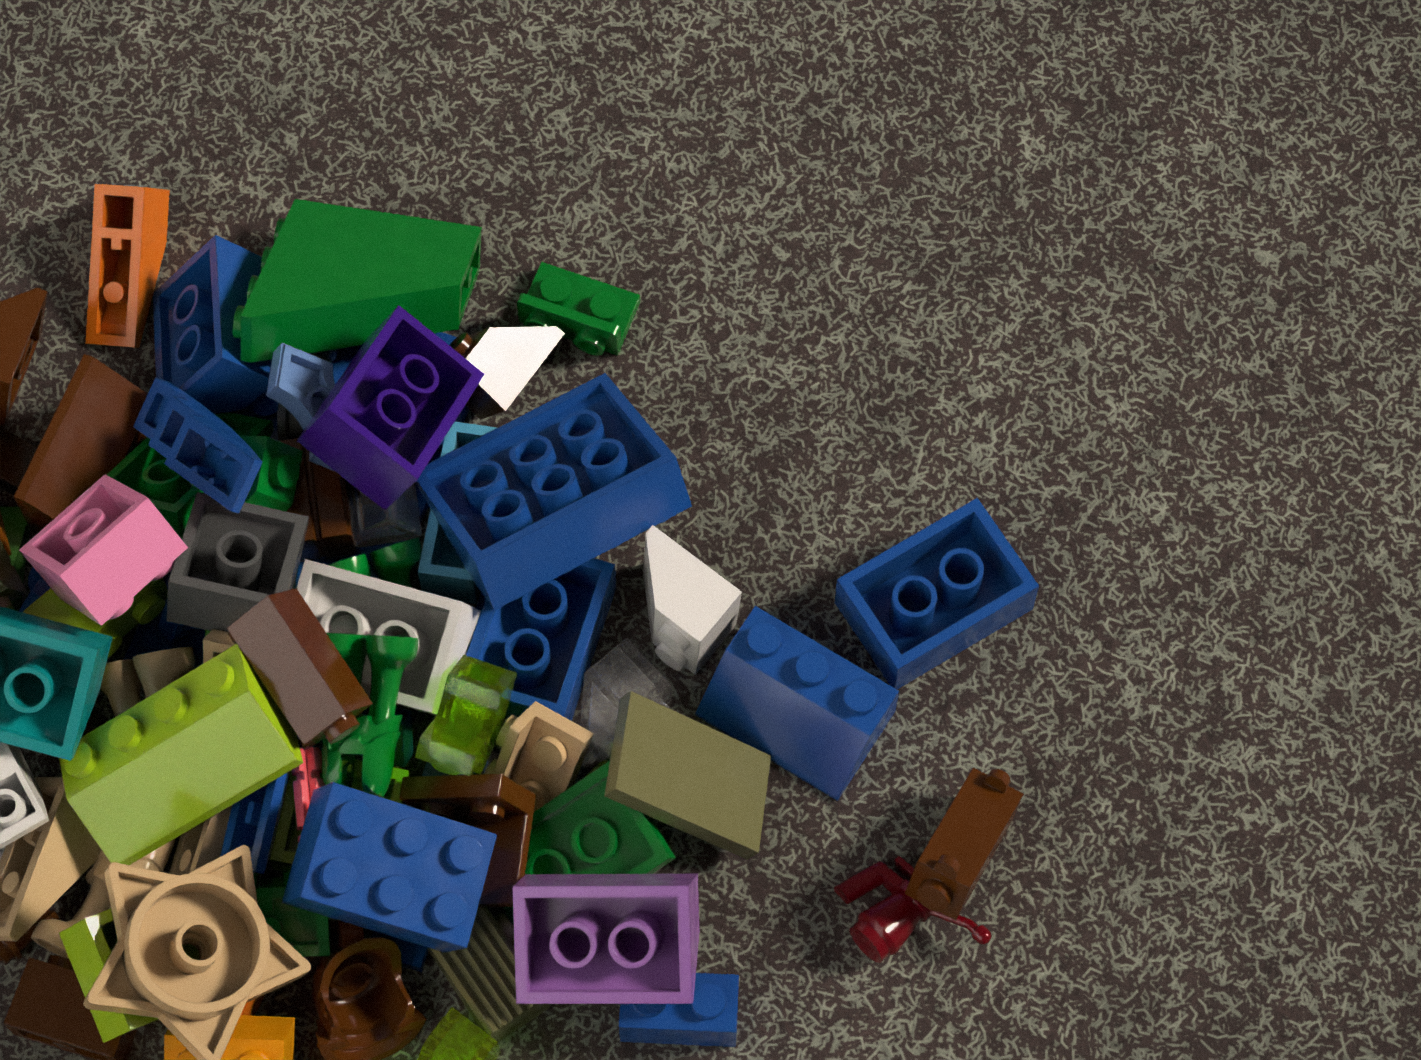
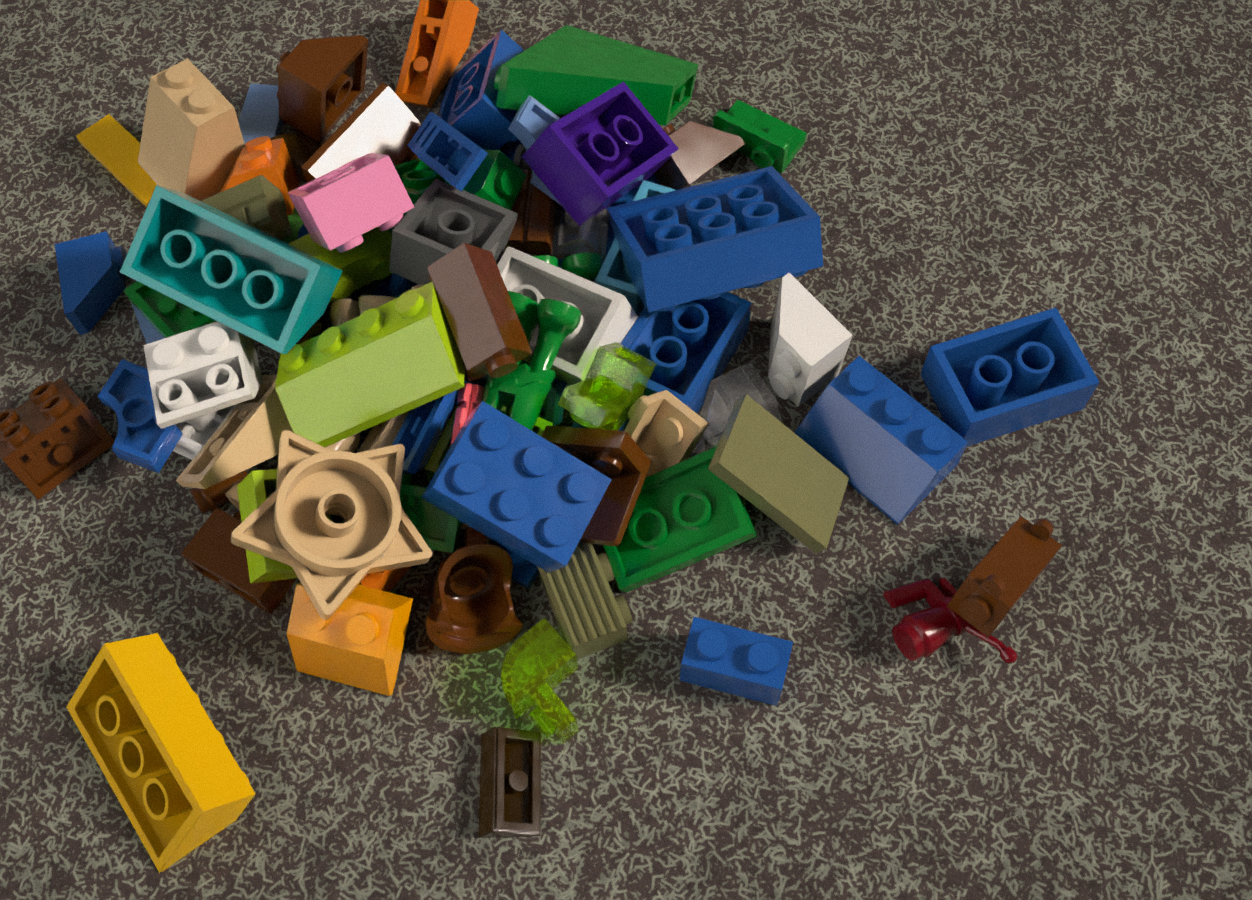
camera: 15 degrees right, 5 degrees down
(606, 938) = (685, 587): medium lavender slope -> none

